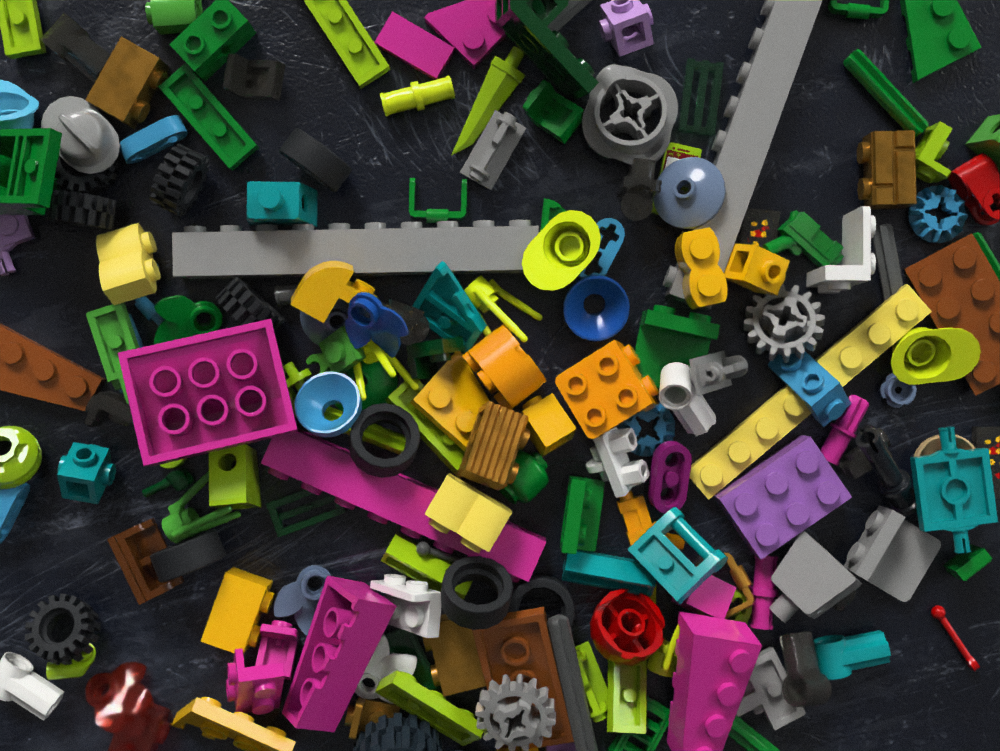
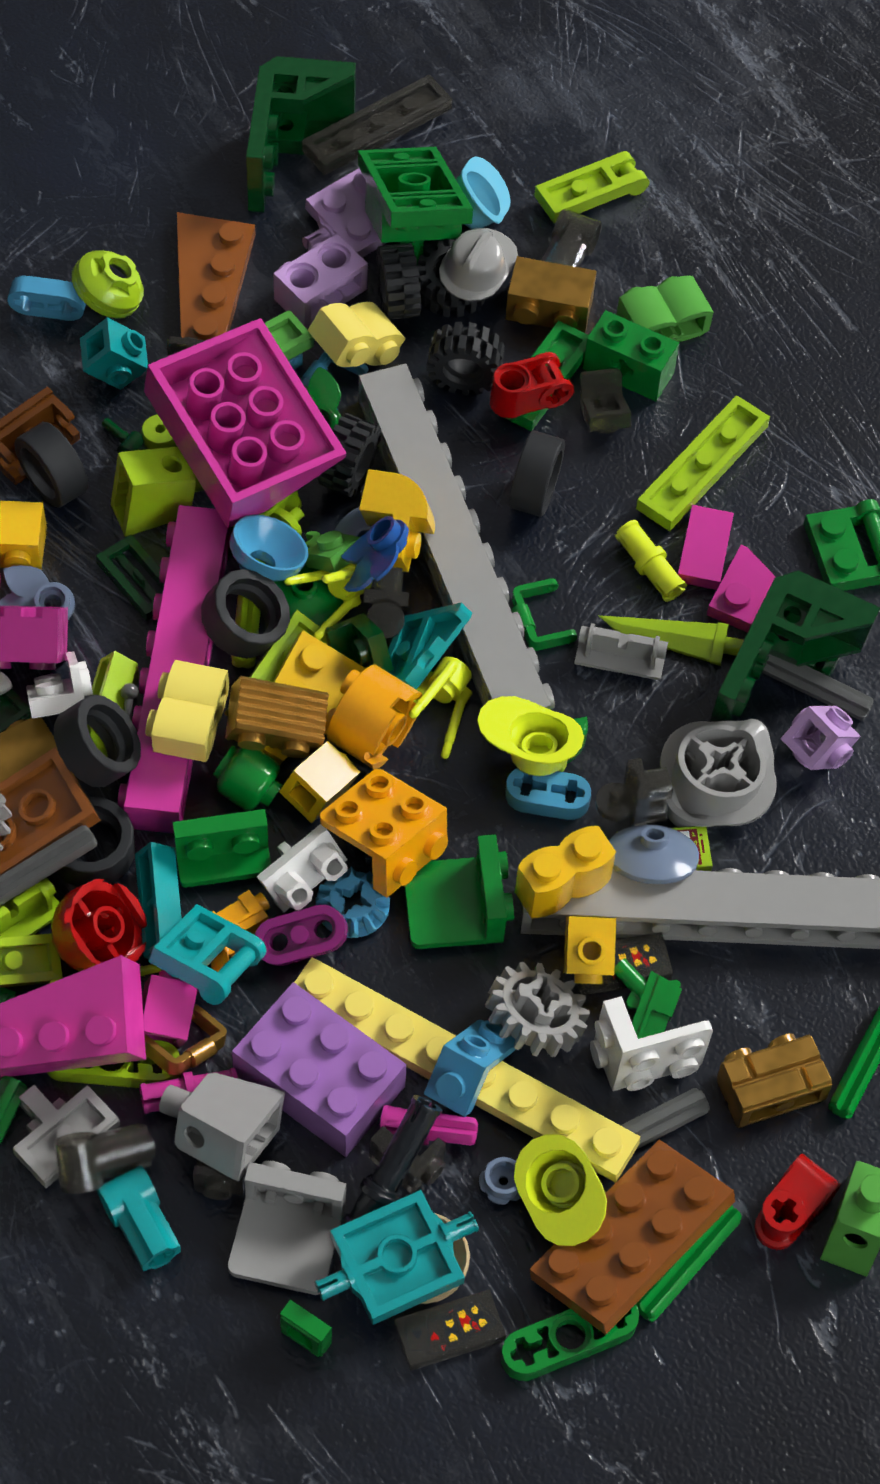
camera: 65 degrees right, 30 degrees down
(62, 270) = (320, 277): none -> lavender brick
(153, 139) = (515, 337): dark azure beam -> none
(186, 522) = (94, 462): bright green plant -> none
(227, 128) = (527, 386): none -> red piece
(281, 203) = (474, 443): teal torso -> none
(553, 112) = (690, 692): green bracket -> none
(604, 323) = (474, 777): blue piece -> none
(680, 396) = (410, 906): white piece -> none
(704, 67) = (768, 836): clear green tile -> none
(715, 371) = (447, 942): light grey hinge -> none
(926, 225) = (756, 1145): dark azure gear -> none
(931, 148) = (820, 1119): lime bracket -> none
(939, 612) = (225, 1324): red hinge -> none

